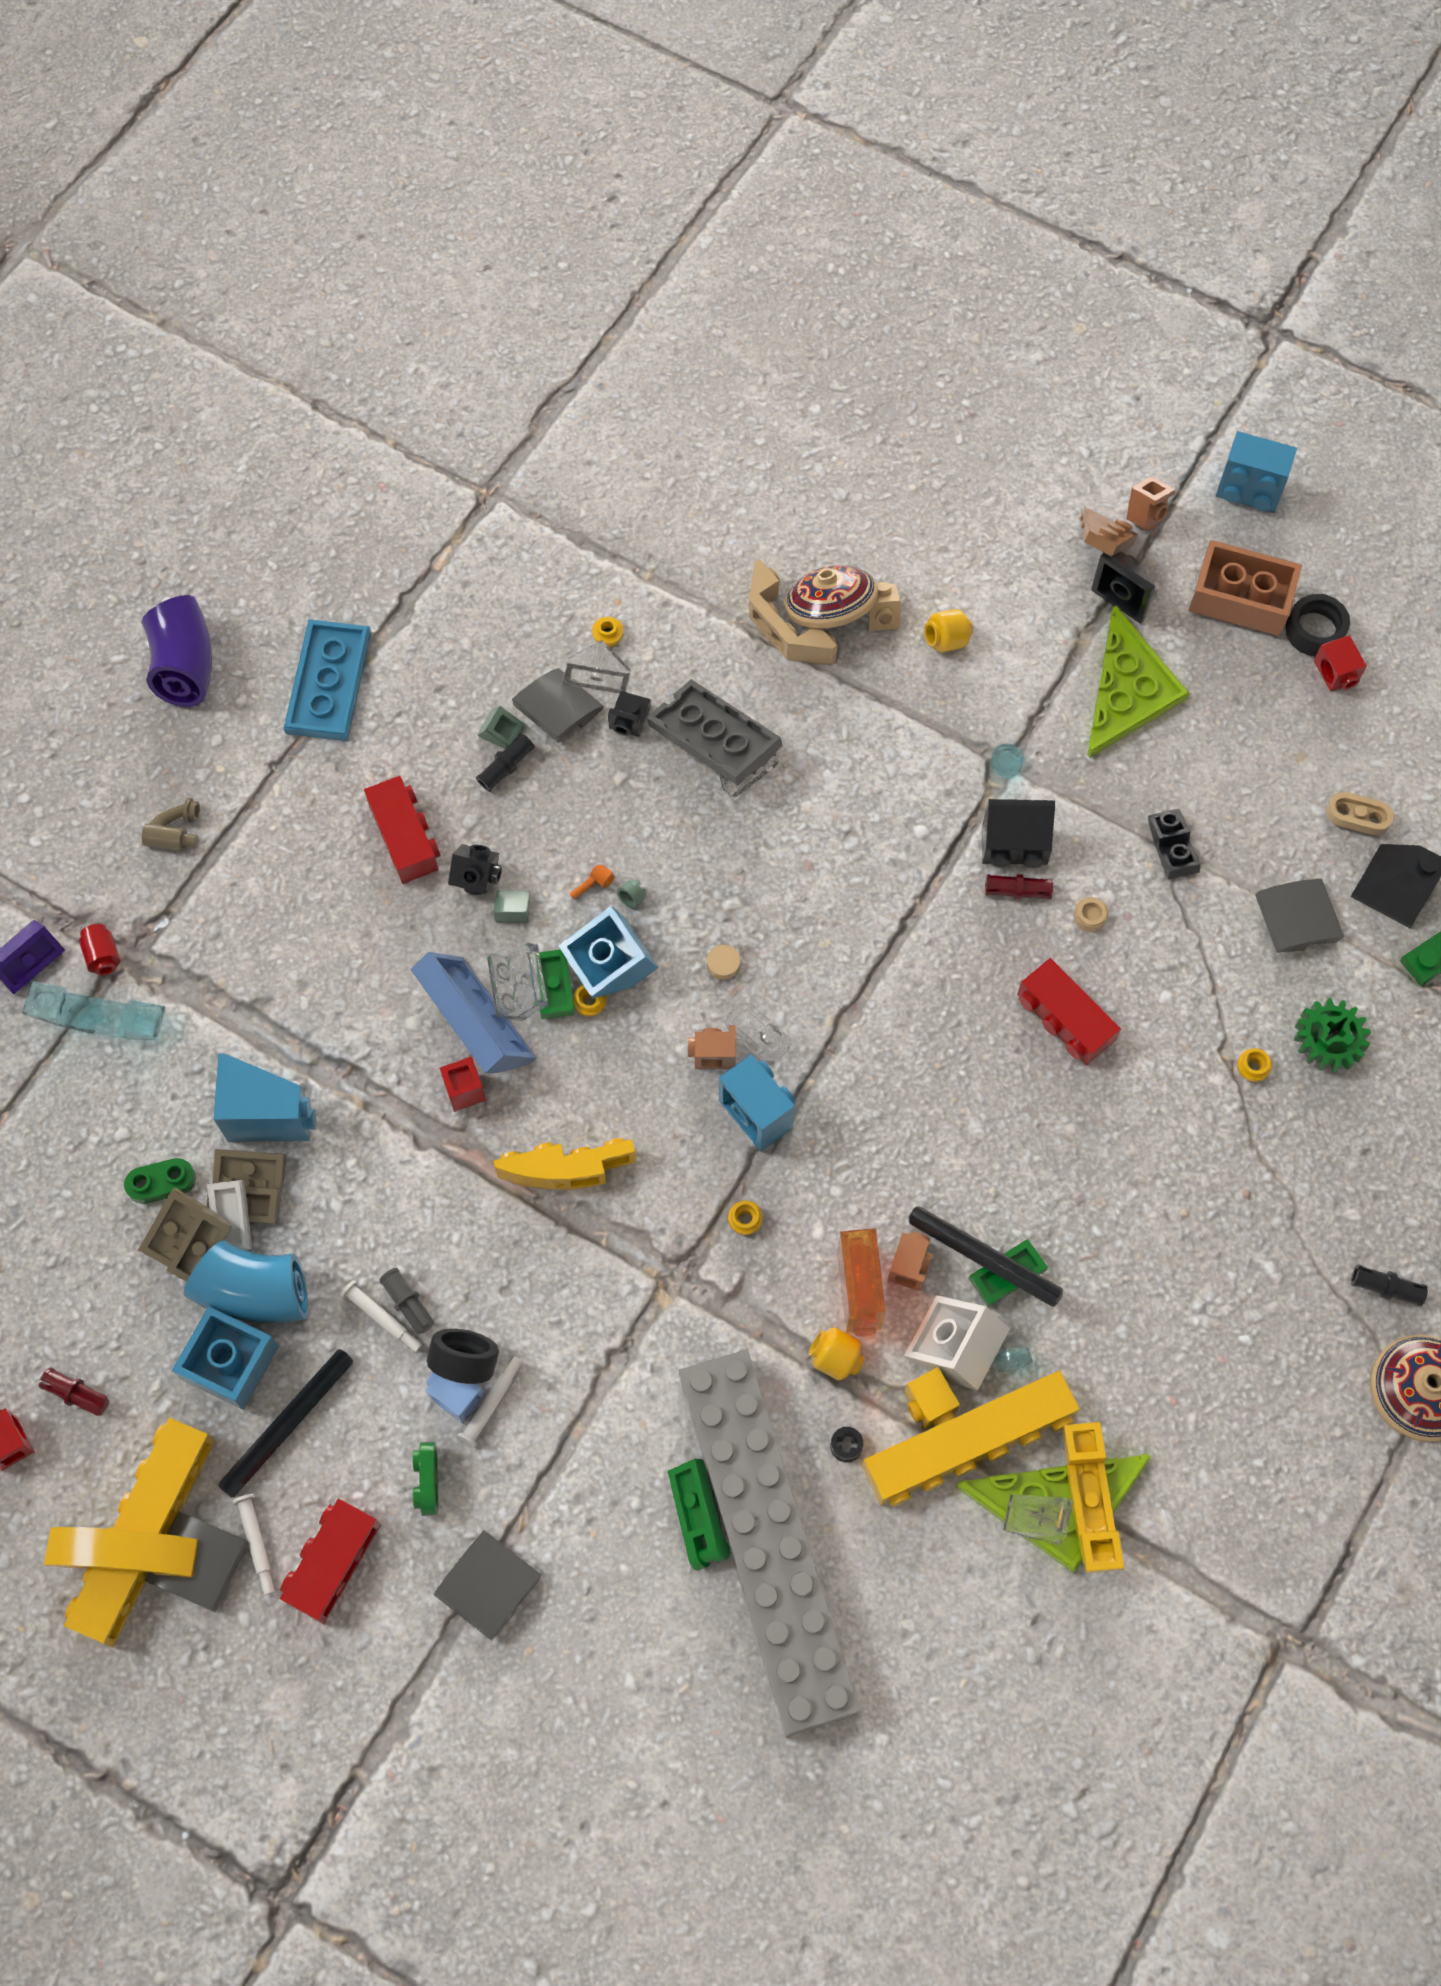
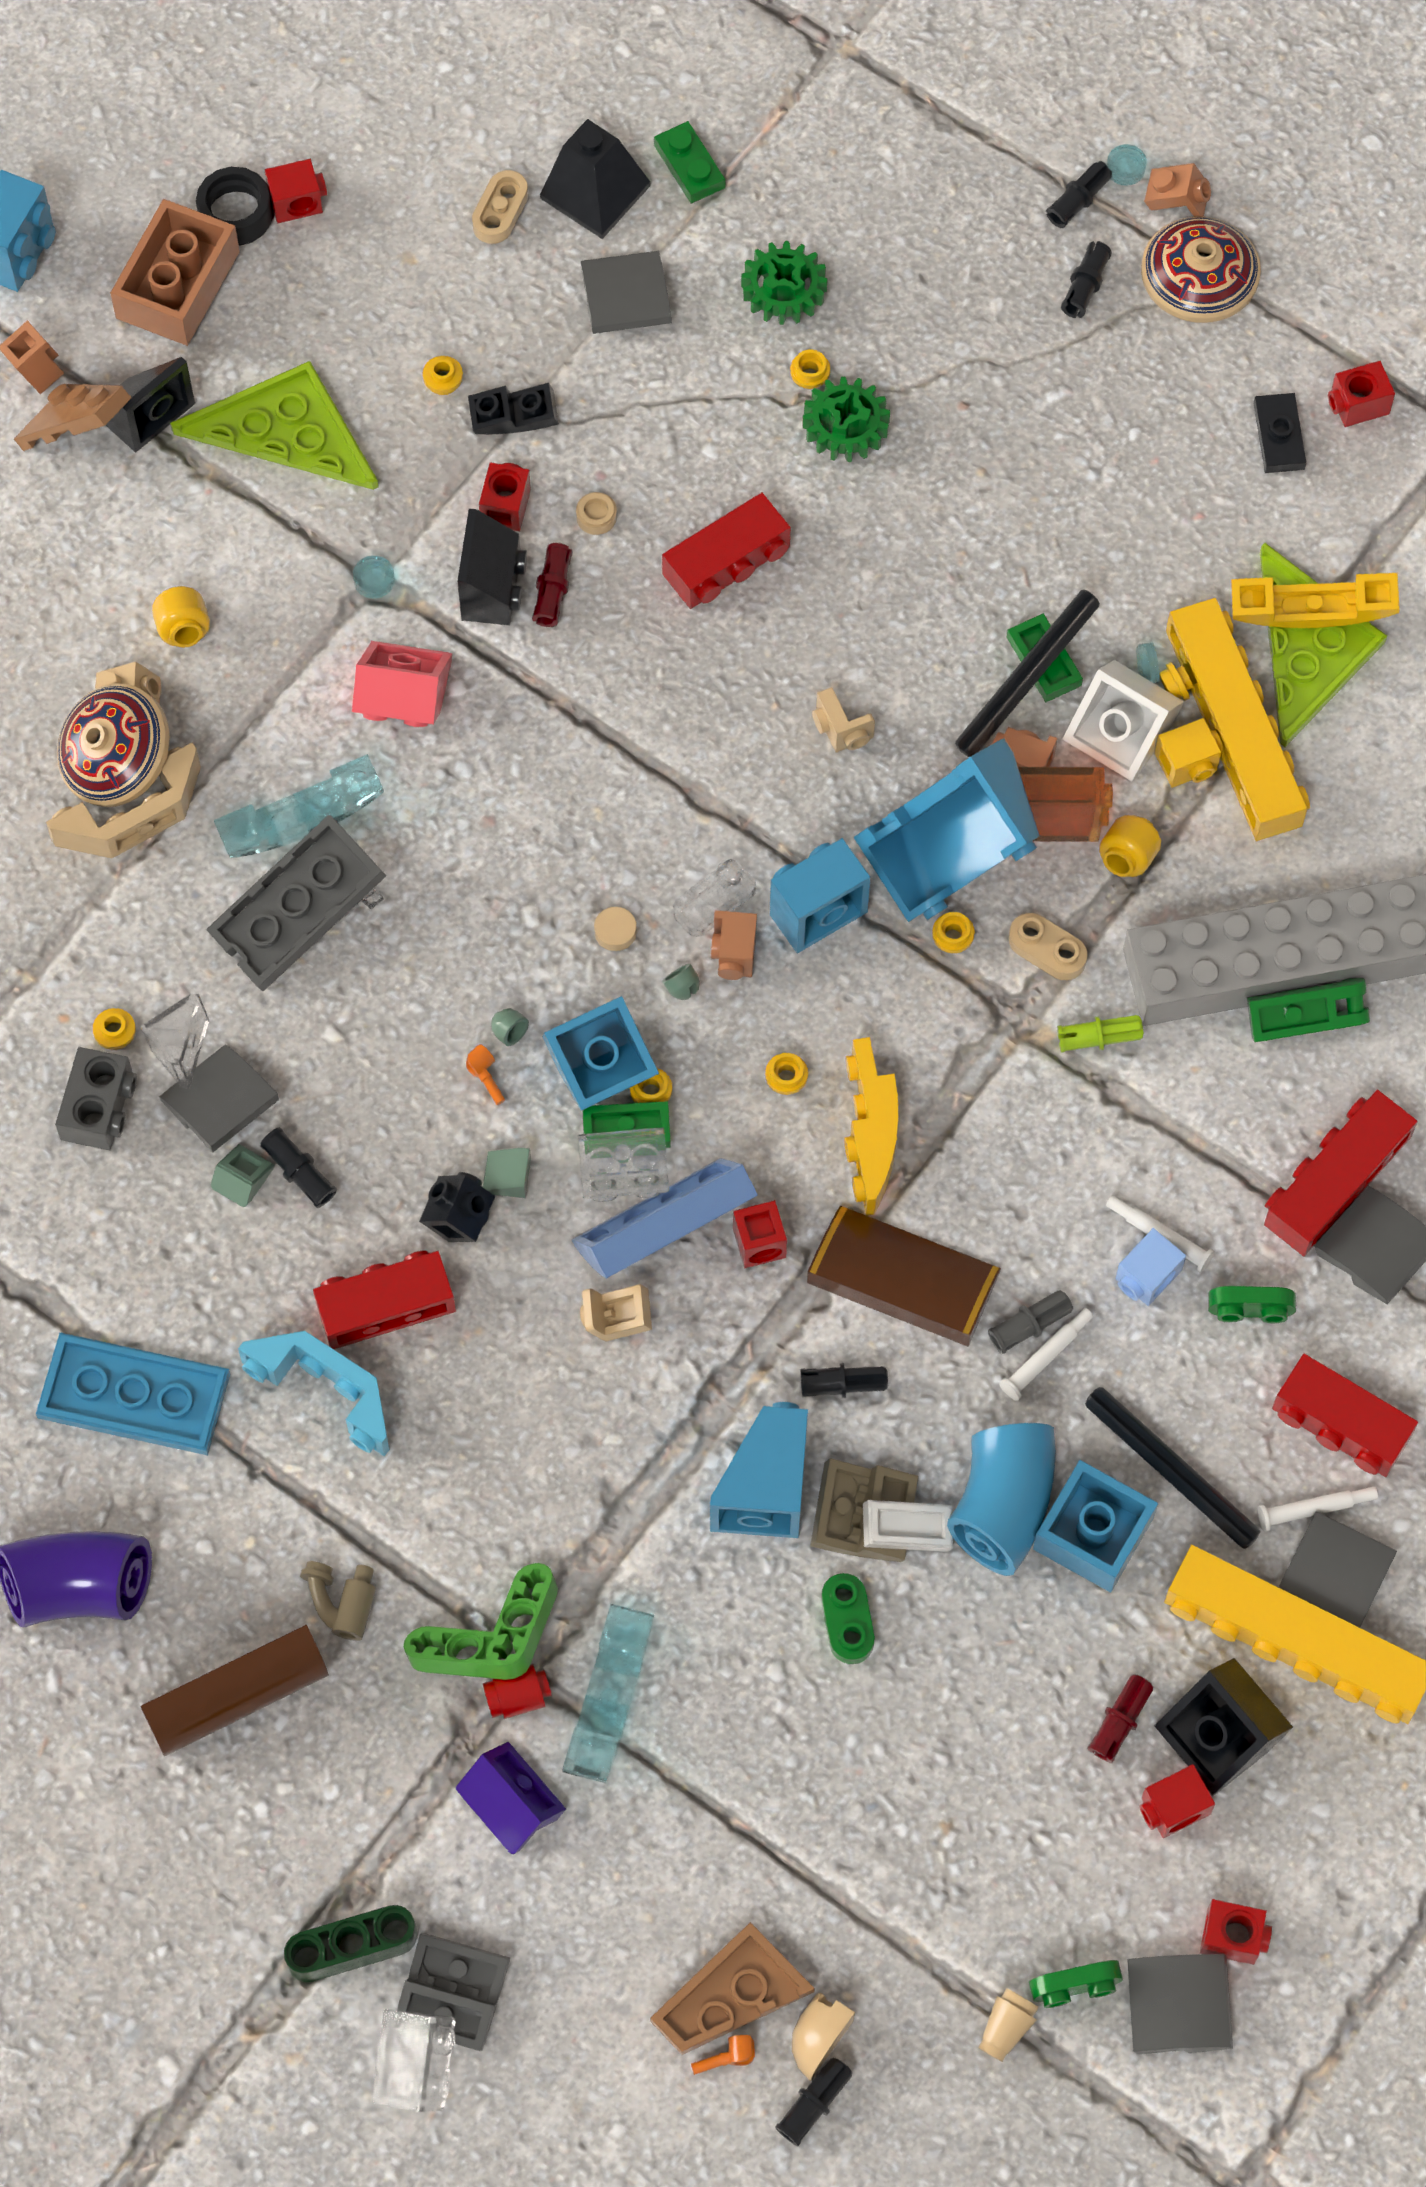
camera: 85 degrees left, 0 degrees up
(65, 1475) = (1223, 1725): none -> black slope
(99, 761) = (234, 1690): none -> reddish brown brick
(121, 1551) = (1327, 1653): yellow slope -> none
(127, 927) = (491, 1645): none -> bright green beam
(183, 1233) = (932, 1577): dark tan slope -> none
(306, 829) = (275, 1355): none -> medium azure slope
(350, 1160) = (843, 1380): none -> black axle
(397, 987) = (616, 1312): none -> tan bracket
(443, 1201) = (903, 1275): none -> reddish brown slope
(462, 1356) = (1112, 1248): black tyre -> none
(550, 616) = (86, 1098): none -> dark grey brick
(550, 1548) = (1339, 1172): none -> red brick
(609, 1089) = (788, 1062): none -> yellow plate
(629, 714) = (245, 1012): black bracket -> none
(663, 1340) = (1100, 1033): none -> lime axle
(681, 1012) = (682, 982): none -> sand green hinge
(741, 1293) = (1044, 947): none -> tan plate
(796, 732) = (293, 817): none -> clear light blue slope
(816, 1195) = (952, 832): none -> dark azure windscreen
(839, 1436) = (1245, 848): black bush -> none
(915, 786) = (401, 683): none -> coral slope
(923, 1106) = (831, 719): none -> tan bracket
(999, 1384) = (1176, 681): none -> yellow plate
(1038, 1517) = (1334, 652): clear slope -> none
(1082, 852) = (506, 509): none -> red brick
(1194, 796) = (442, 384): none -> yellow plate
(1194, 1095) = (858, 429): none -> green gear
(1267, 1466) = (1279, 433): none -> black plate
(1313, 1551) = (1367, 380): none -> red brick

